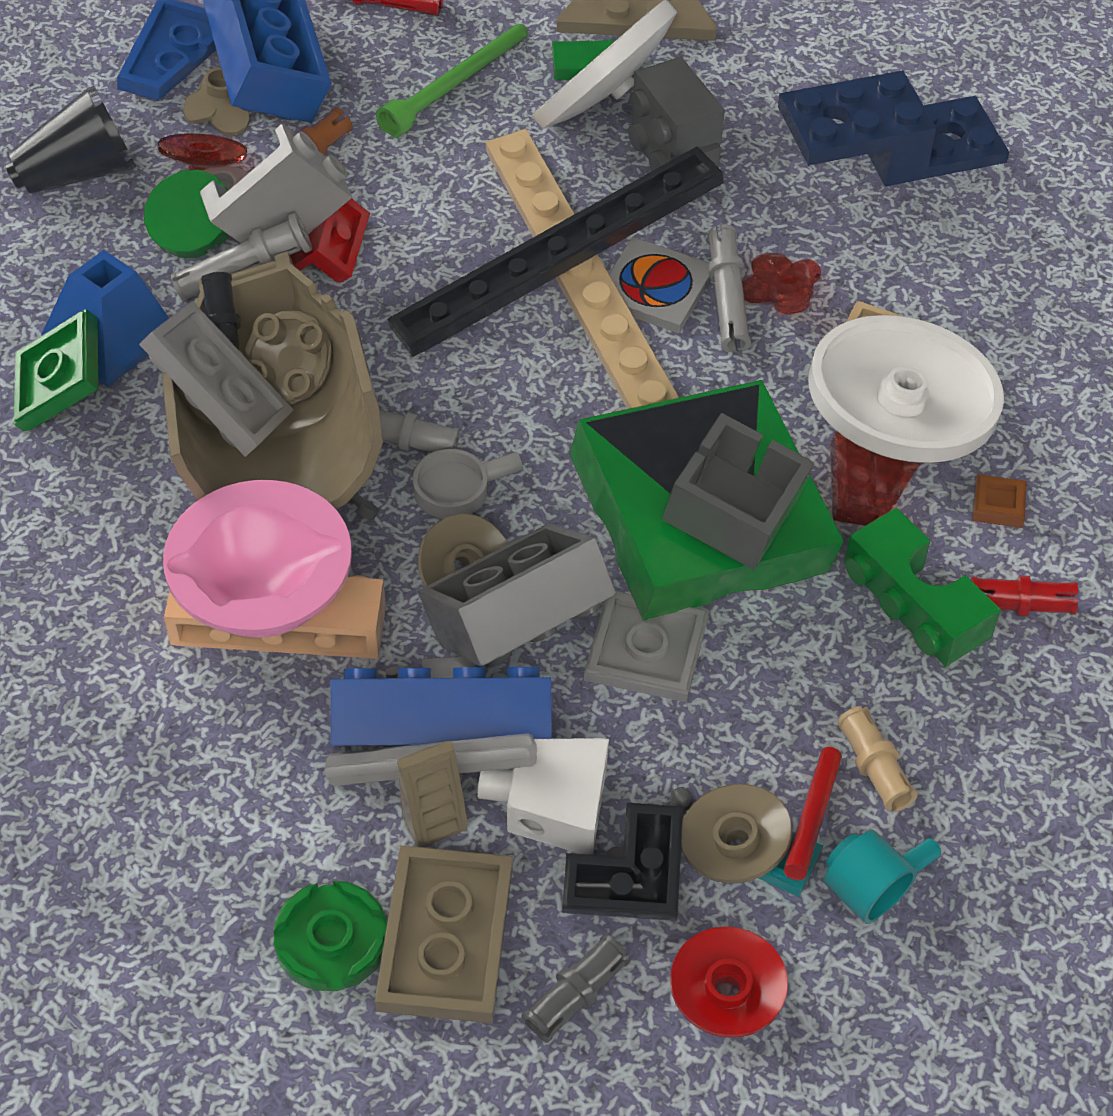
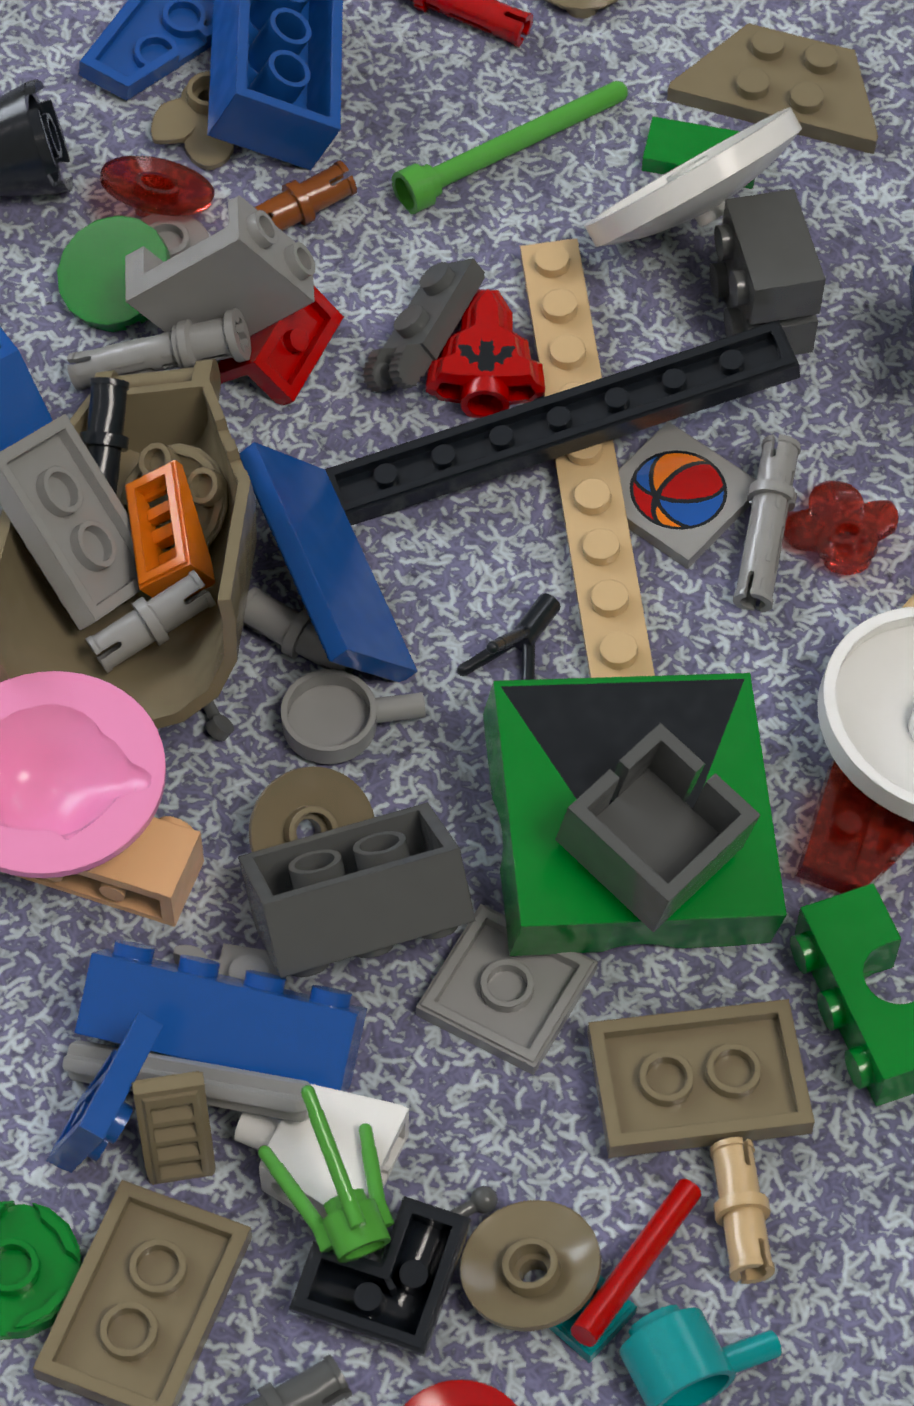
camera: 15 degrees right, 5 degrees up
(298, 438) = (150, 621): none -> light grey pin
(311, 398) = (158, 569): none -> orange slope
(373, 788) = (101, 1109): none -> blue wing
(421, 376) = (327, 564): none -> blue tile
(433, 206) = (424, 325): none -> dark grey hinge
(486, 222) = (486, 362): none -> red rock
(575, 401) = (522, 637): none -> black plant
(597, 825) = (352, 1222): none -> bright green plant
(812, 673) = (699, 1078): none -> dark tan plate

